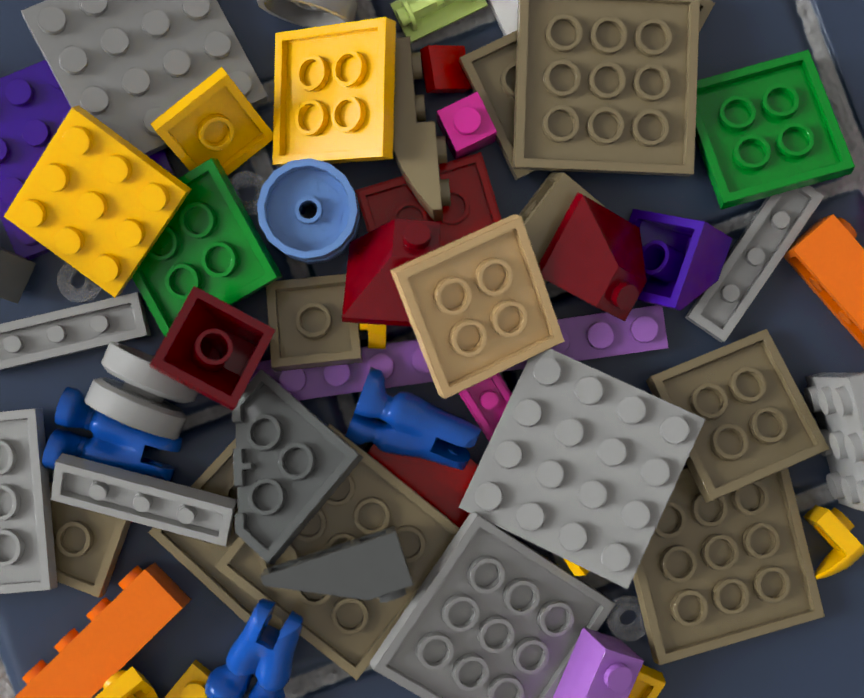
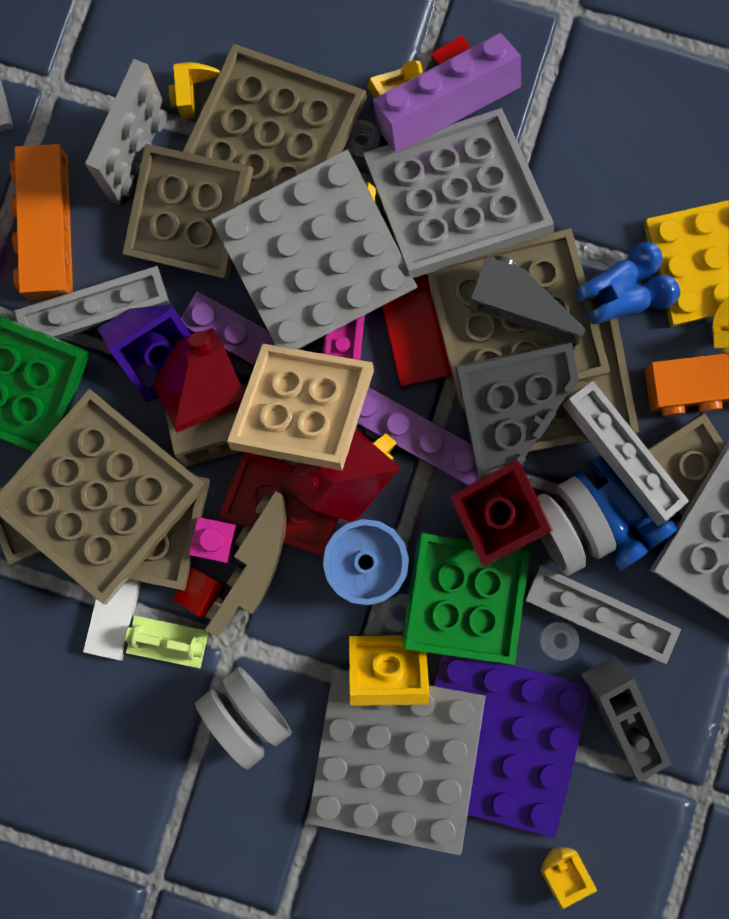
camera: 140 degrees left, 5 degrees down
(96, 201) = (506, 679): yellow plate -> none
(311, 324) = (422, 487): dark tan plate -> none
(335, 92) = (287, 630): yellow plate -> none
(410, 426) = (409, 368): blue piece -> none

